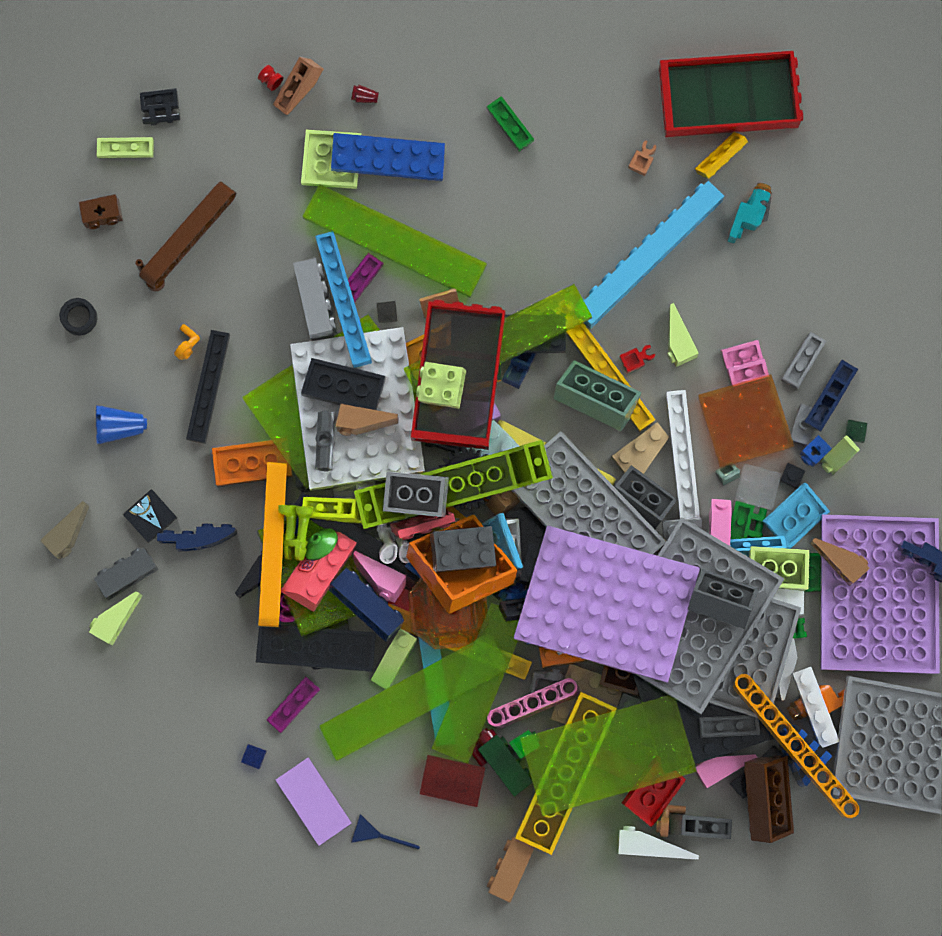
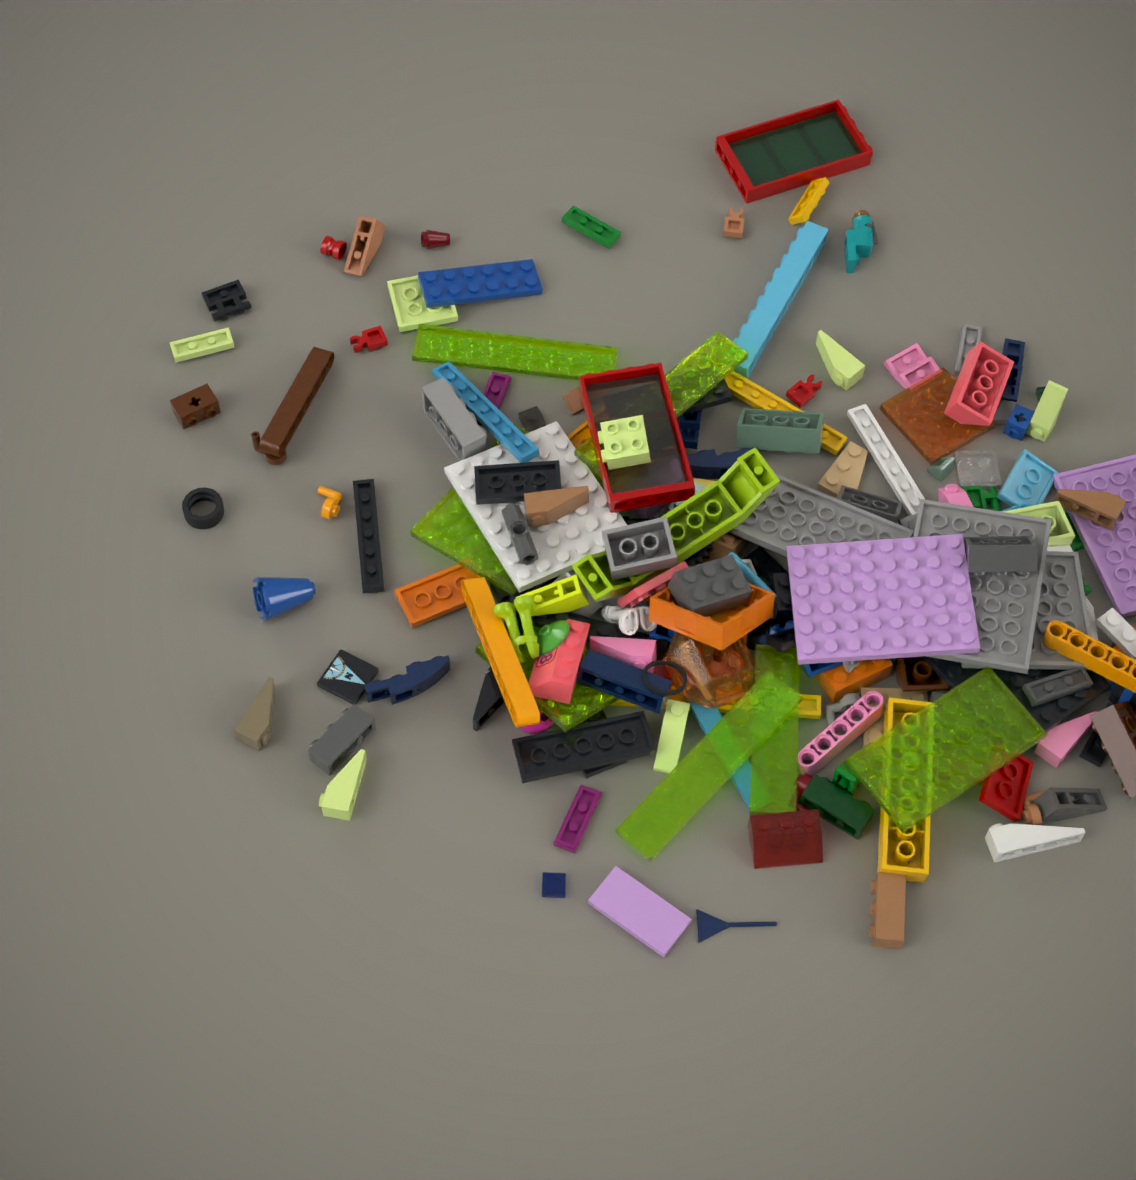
camera: 25 degrees left, 20 degrees down
(275, 186) = (371, 338): none -> red plate
(398, 632) = (661, 692): none -> black piece
(521, 408) = (709, 465): none -> dark blue slope
(790, 409) = (979, 386): none -> coral slope
(792, 475) = (1006, 452): black plate -> none

